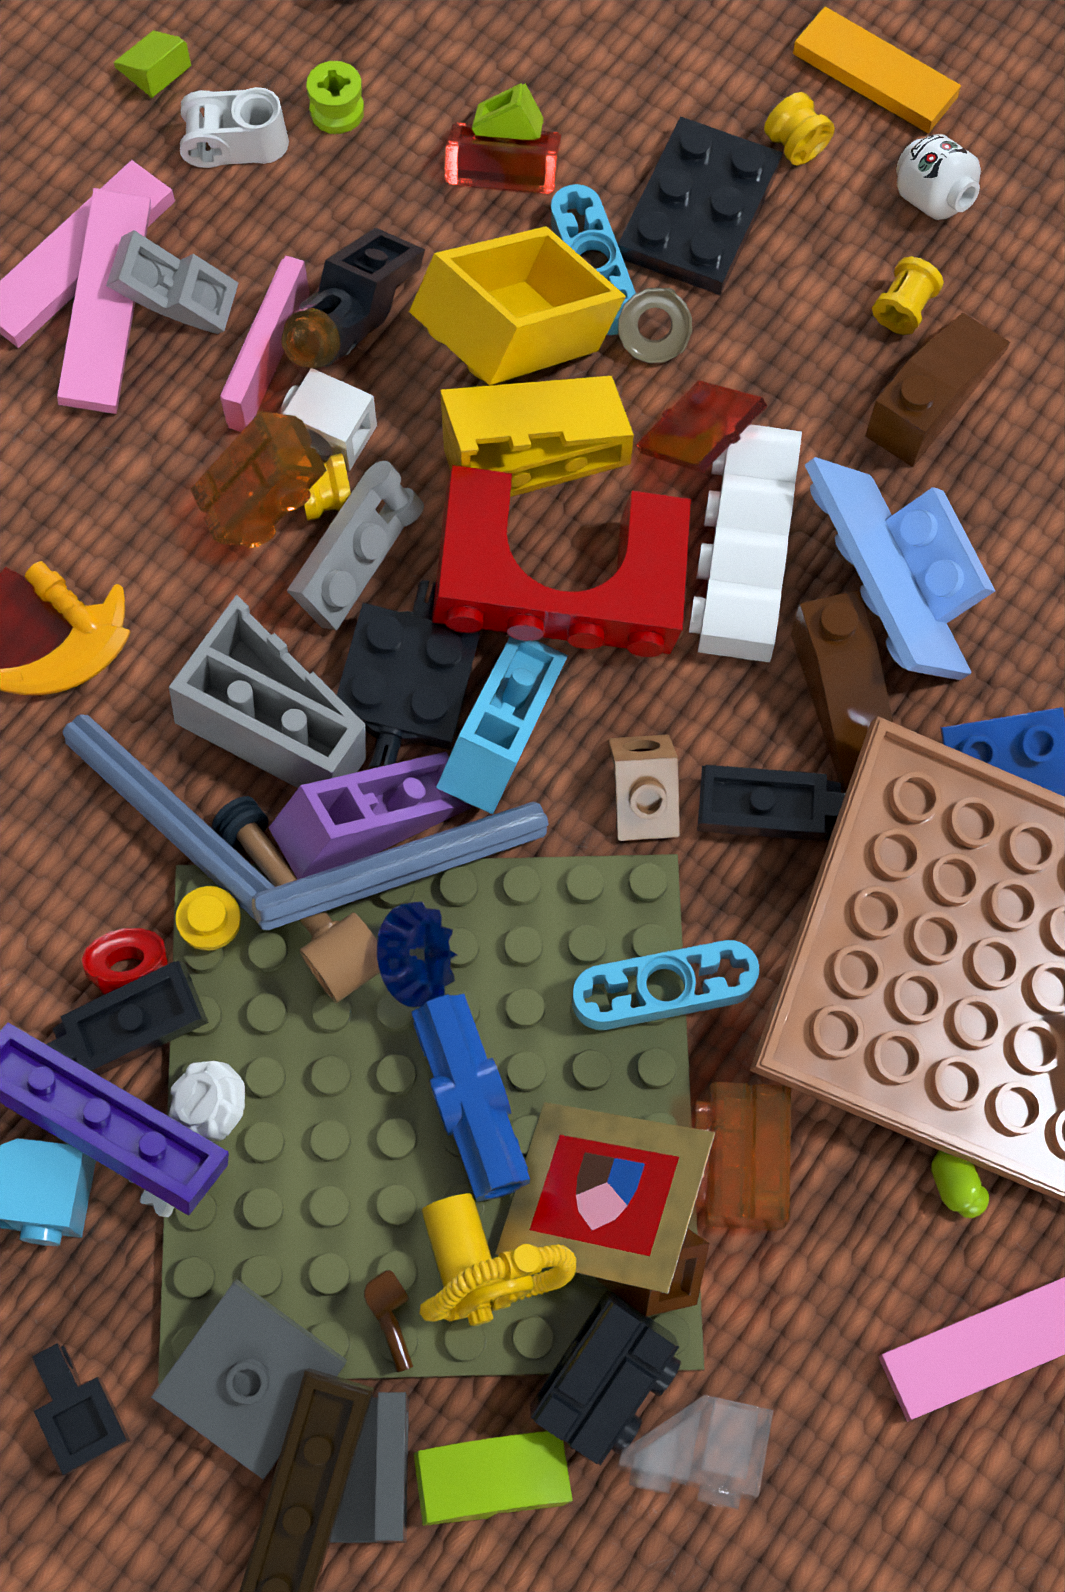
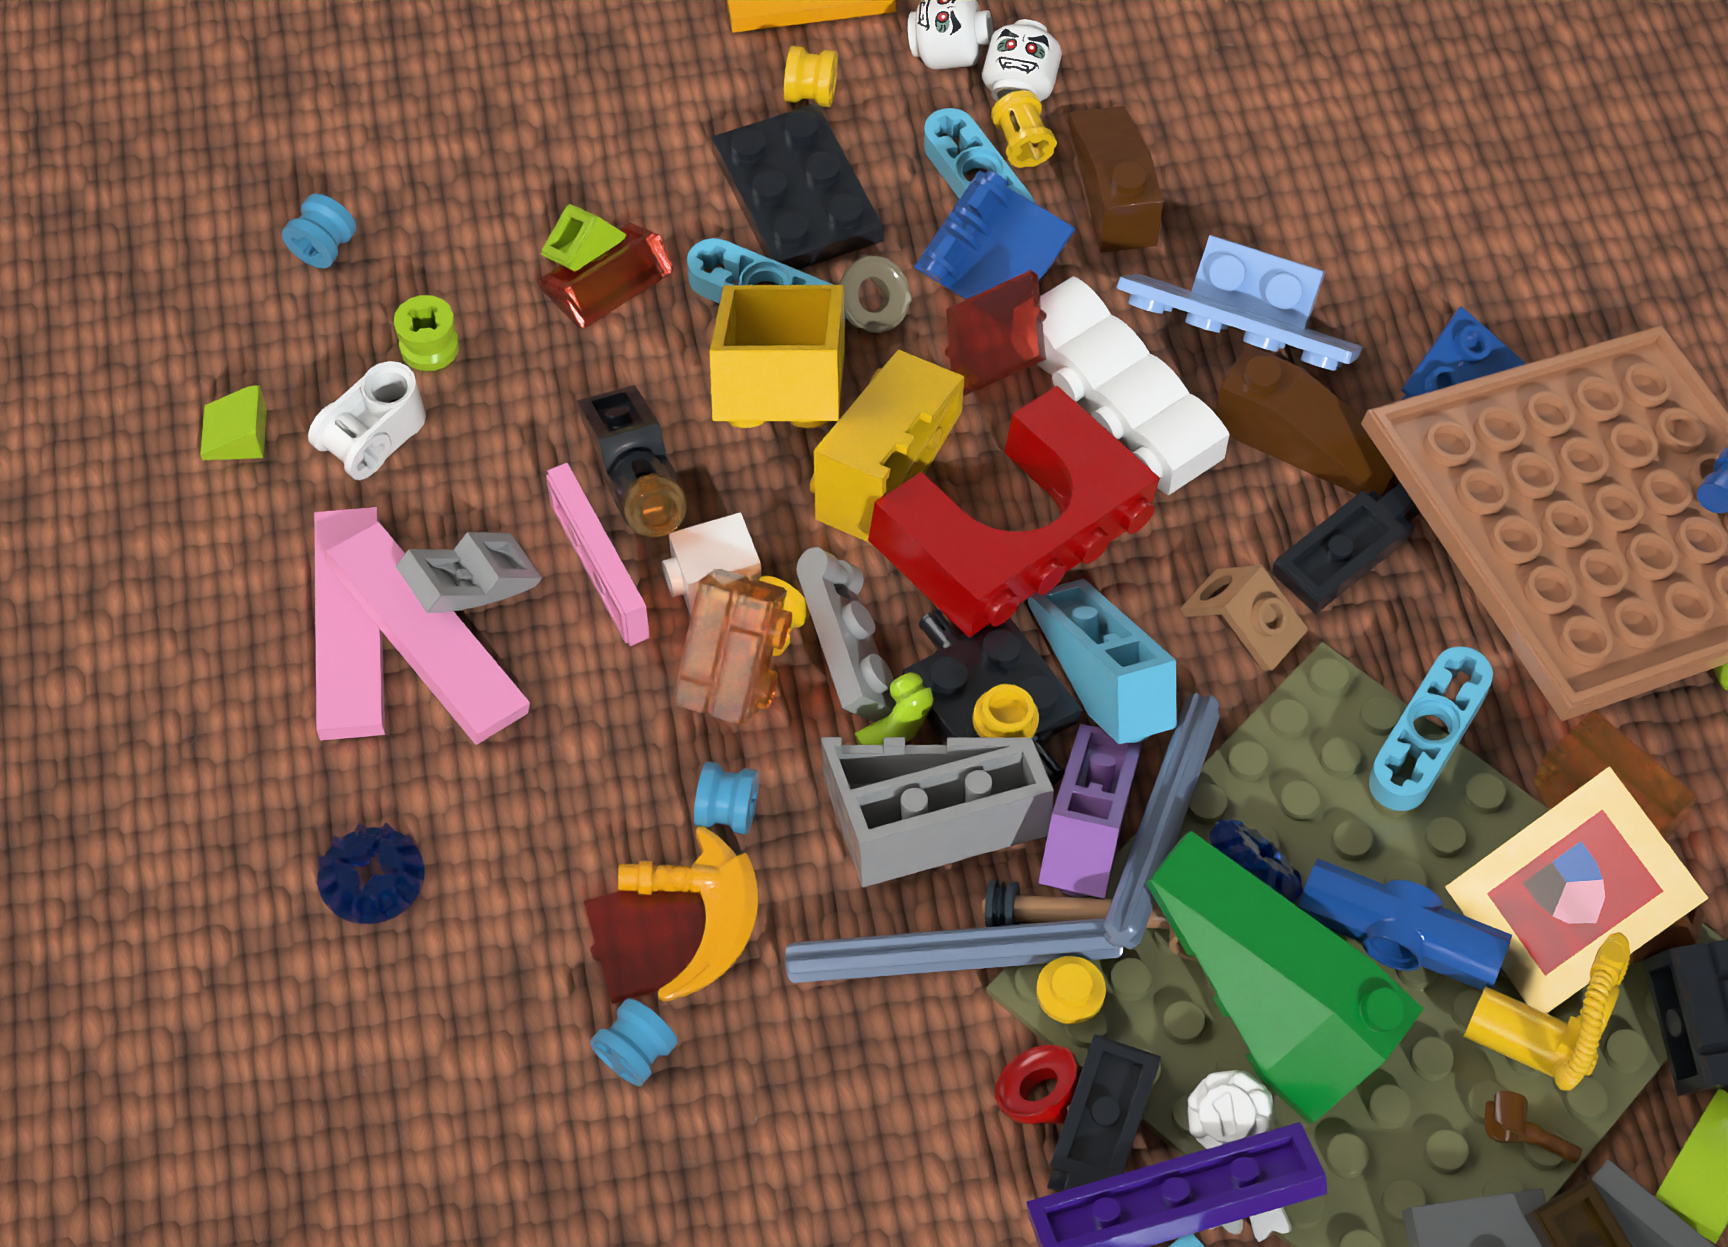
camera: 45 degrees left, 10 degrees down
(155, 582) = (726, 798): none -> dark azure wheel
(323, 1063) = (1295, 990): none -> green wedge
(327, 636) = (907, 715): none -> lime arm
(376, 696) = (1005, 713): none -> yellow plate
(781, 357) = (992, 239): none -> blue hinge
(843, 325) = (974, 148): none -> medium azure beam
(963, 243) = (1022, 59): none -> white head

